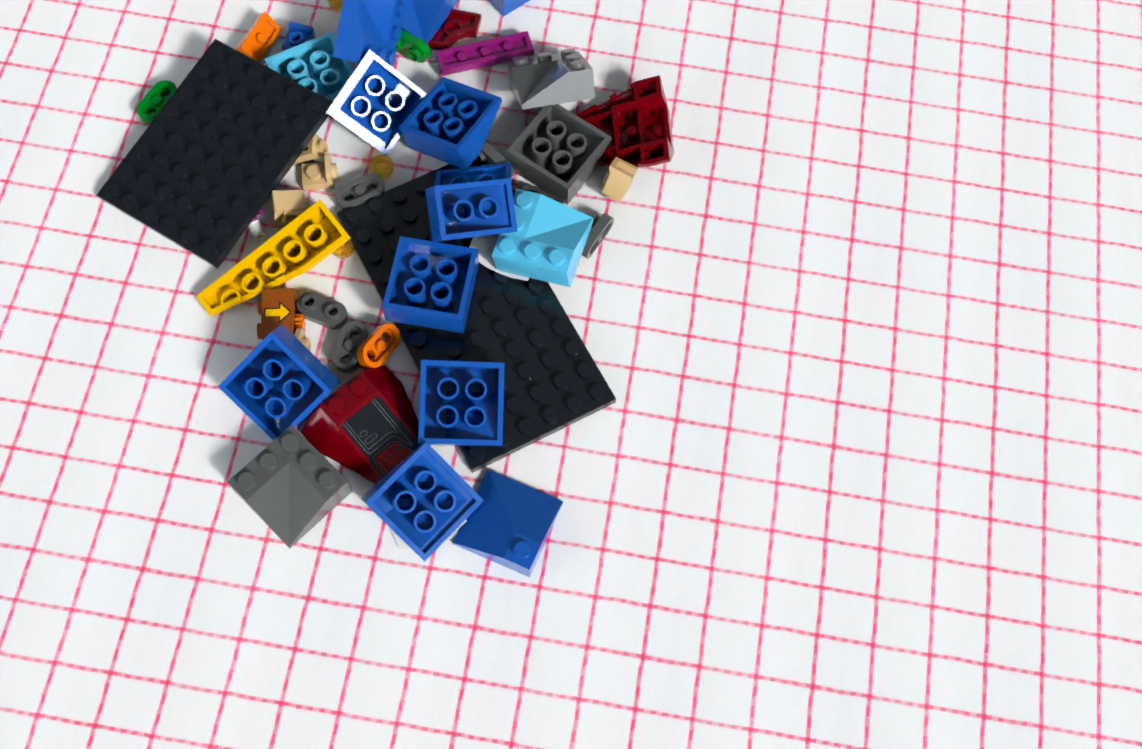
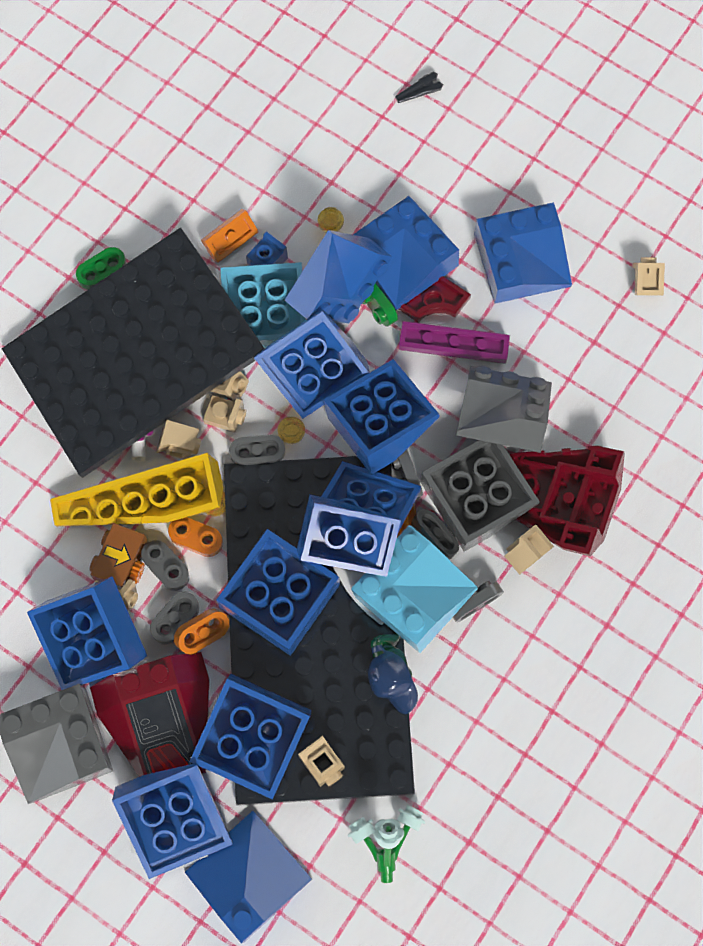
camera: 30 degrees right, 5 degrees up
(337, 279) = (194, 537): none -> orange plate
(519, 406) = (315, 750): none -> tan window
(556, 311) = (390, 674): none -> dark blue hair
(613, 425) = (388, 835): none -> light aqua plant

